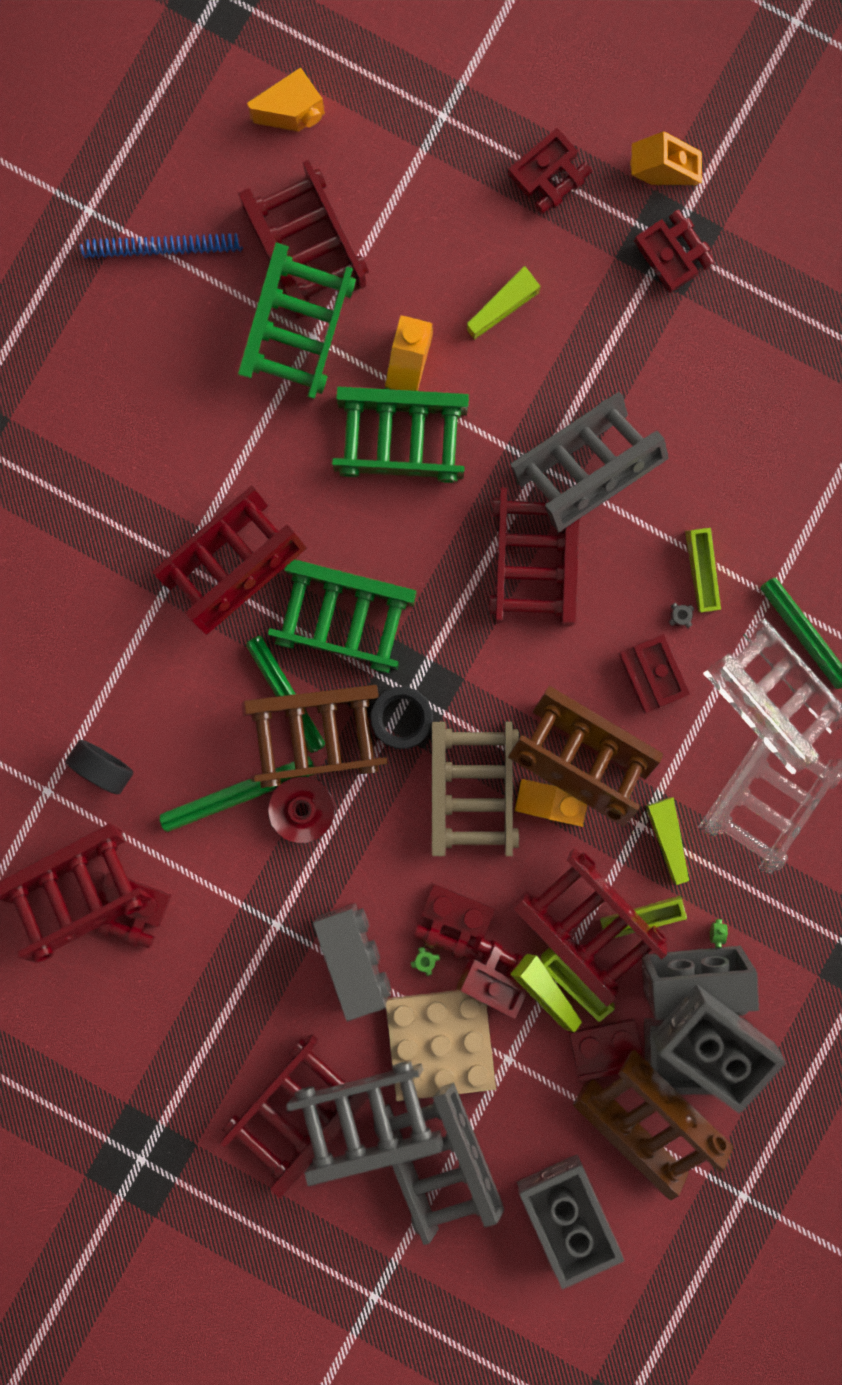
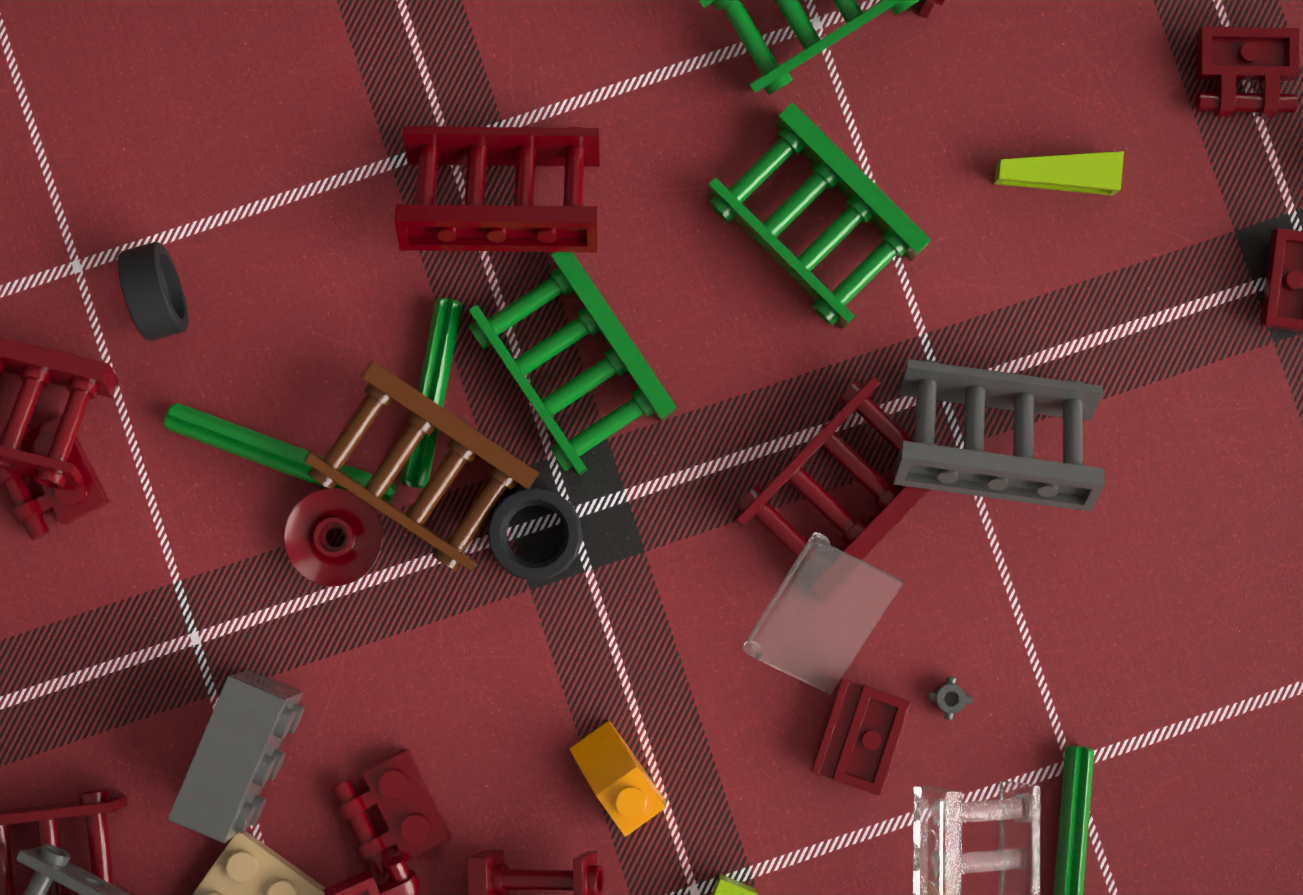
camera: 35 degrees right, 0 degrees up
(409, 354) = (904, 136): light orange slope -> none
(425, 961) = (321, 826): bright green piece -> none
(445, 804) = (496, 673): dark tan fence -> none
(581, 629) = (821, 614): none -> clear piece
(598, 734) = (738, 749): reddish brown fence -> none
(703, 569) = (1021, 668): lime piece -> none

